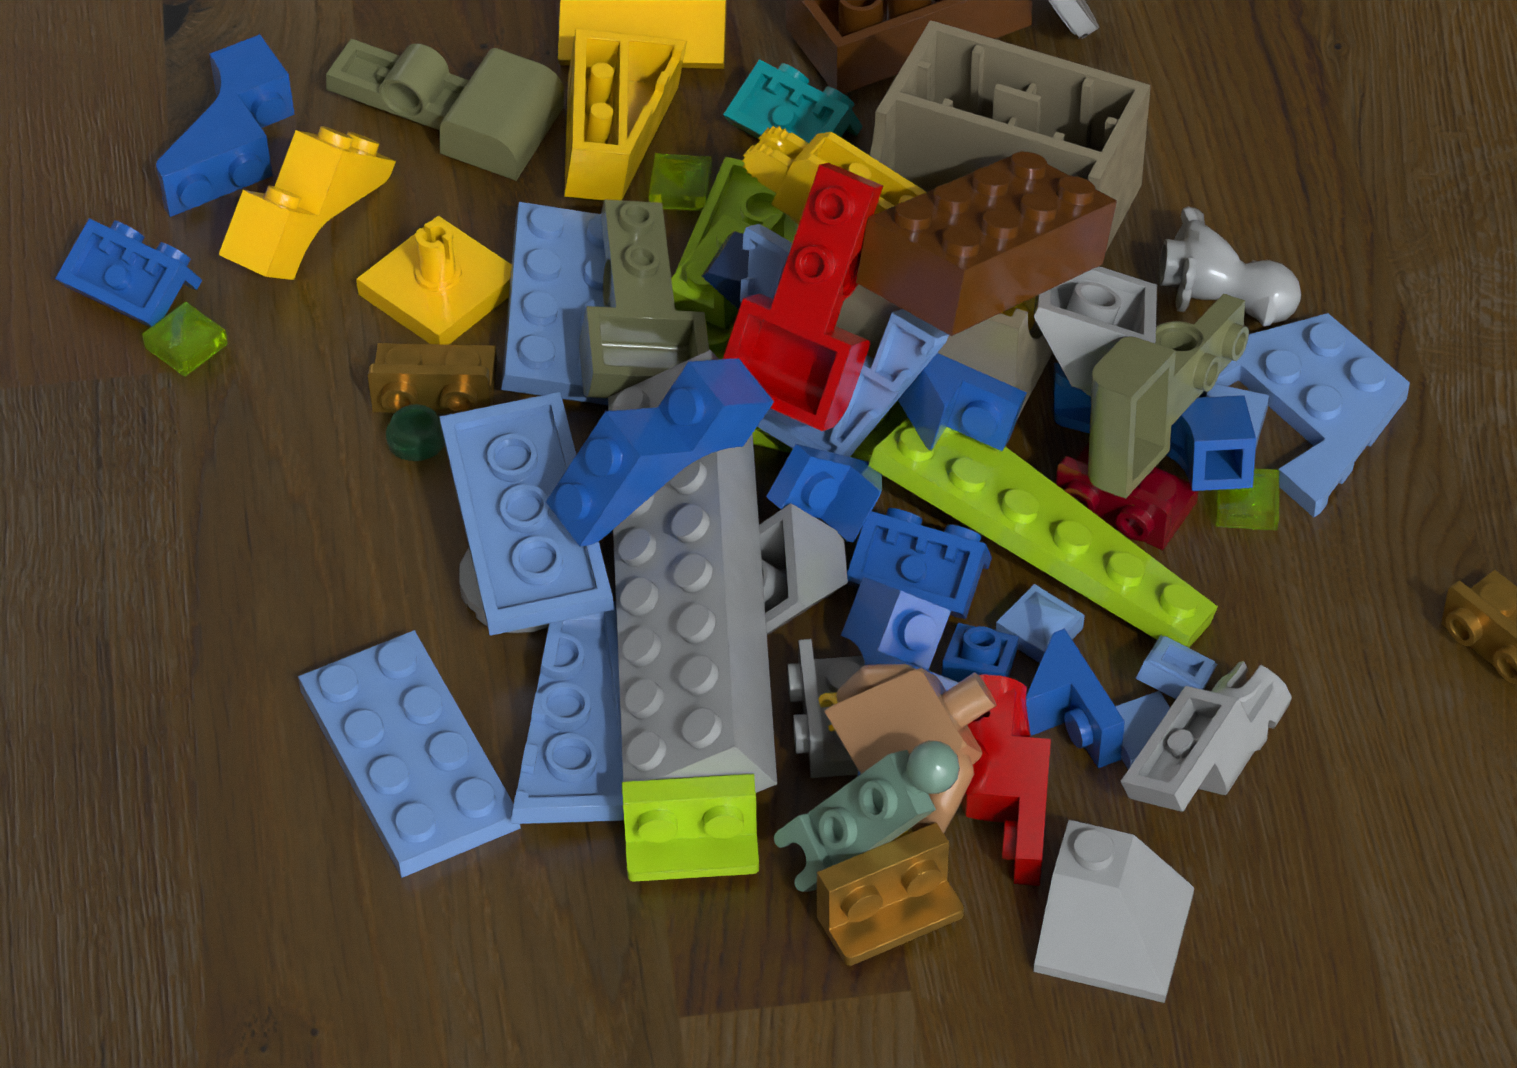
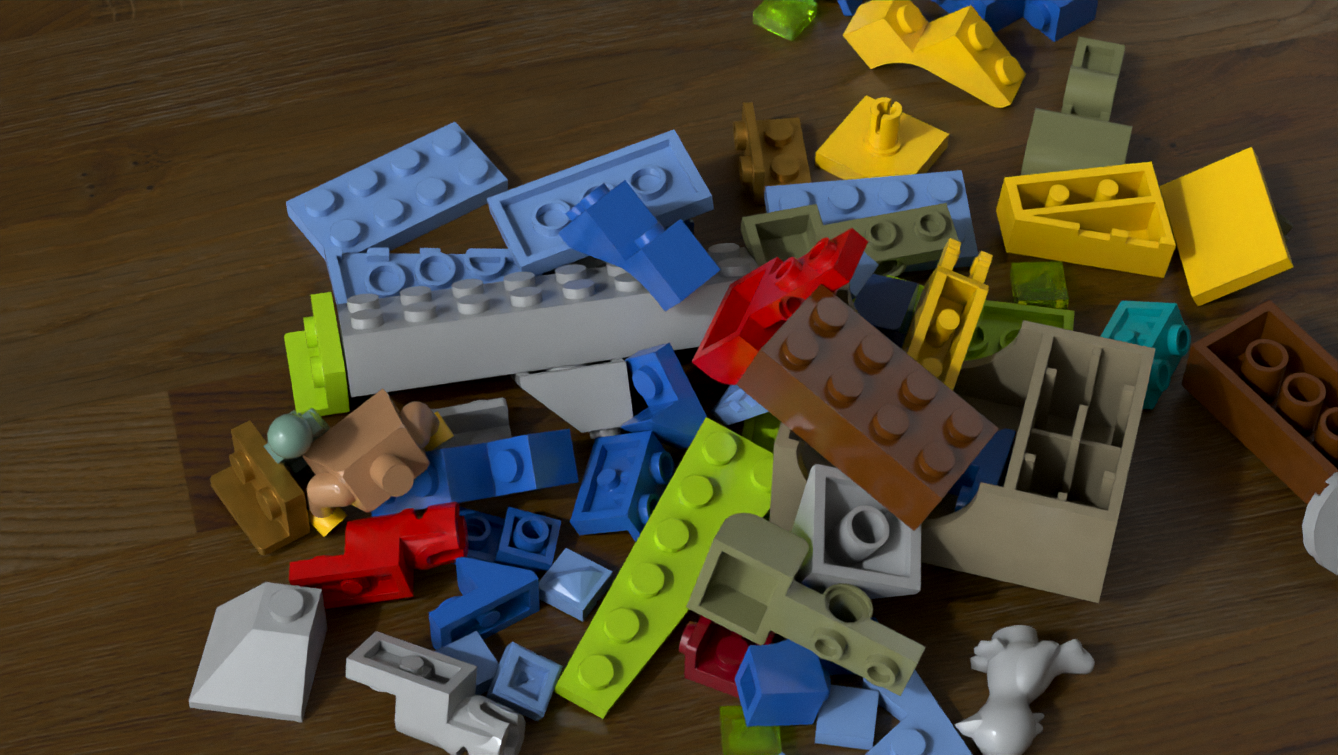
camera: 80 degrees right, 0 degrees up
(415, 433) = (712, 154): clear green plate -> none
(962, 400) = (752, 449): blue slope -> none

